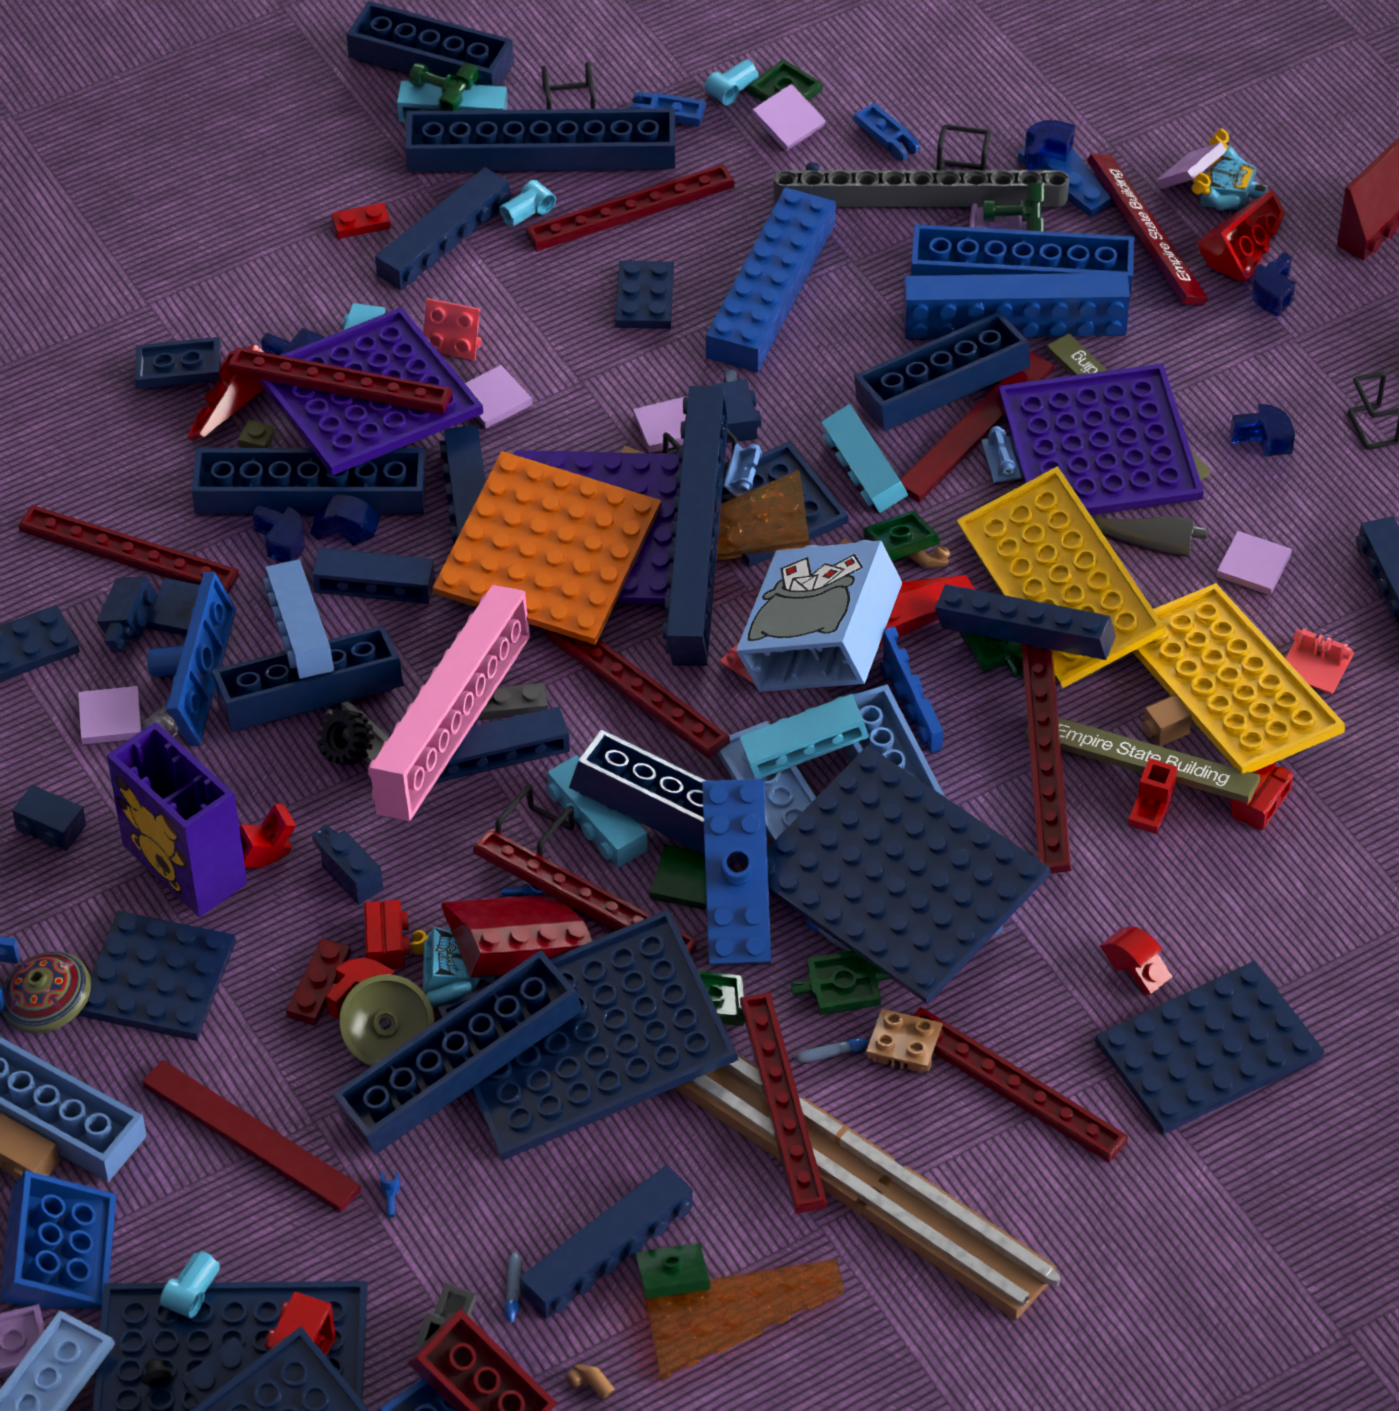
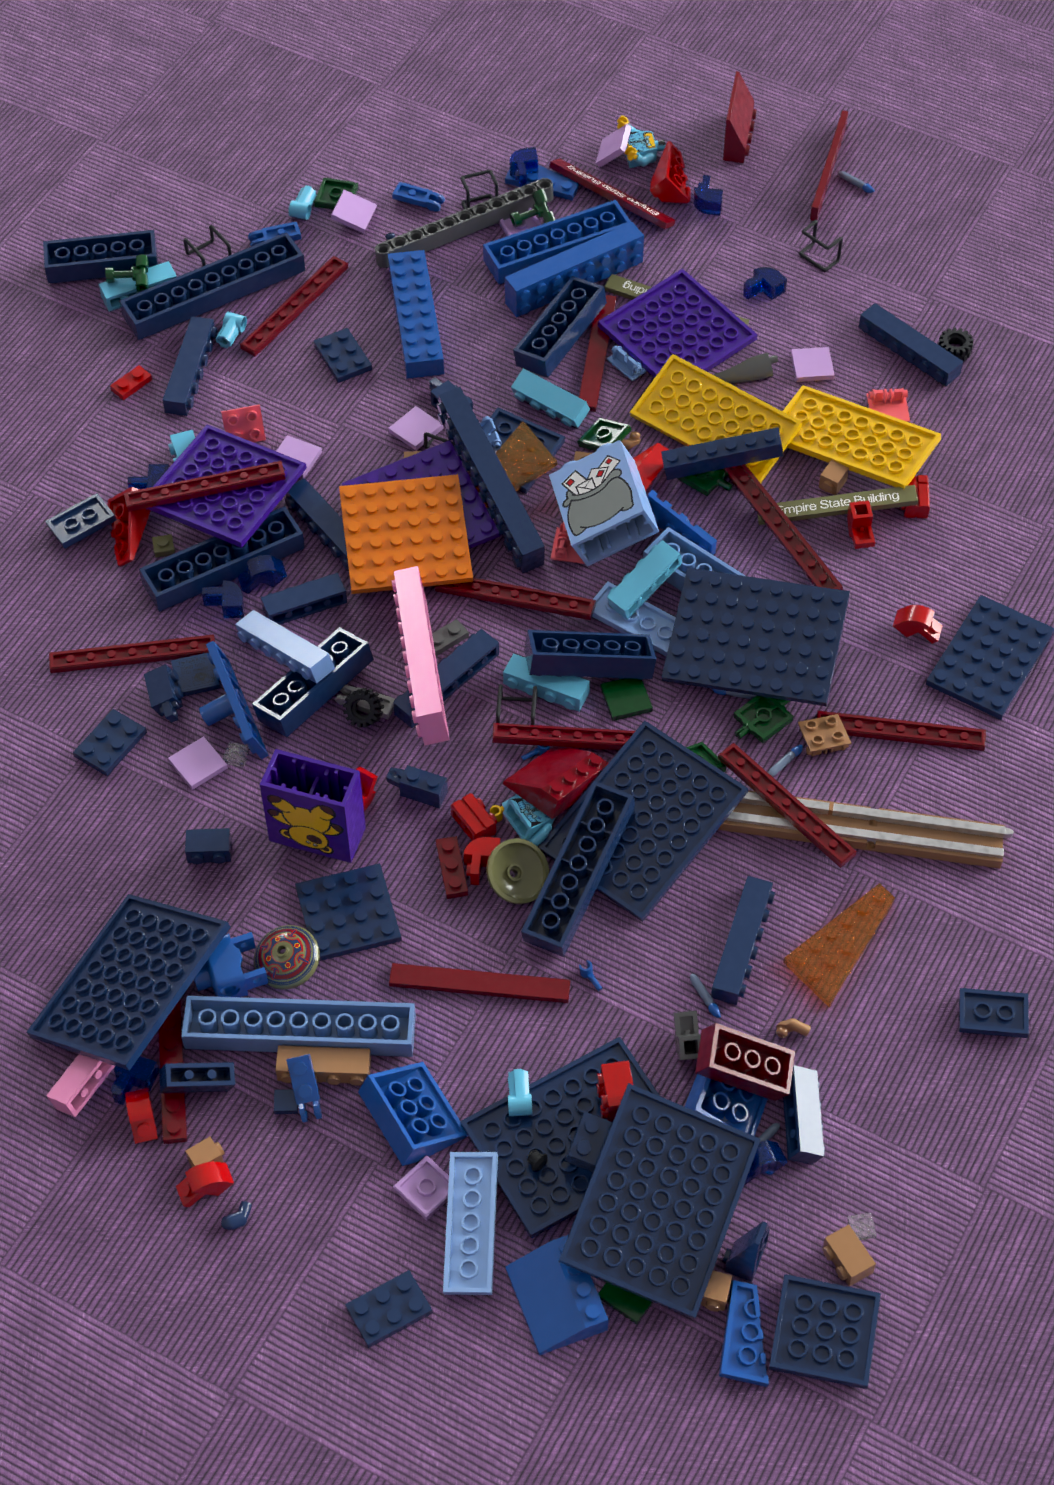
camera: 30 degrees left, 5 degrees up
(672, 1270) = (793, 937): dark green plate -> none
(736, 901) = (664, 679): blue plate -> none

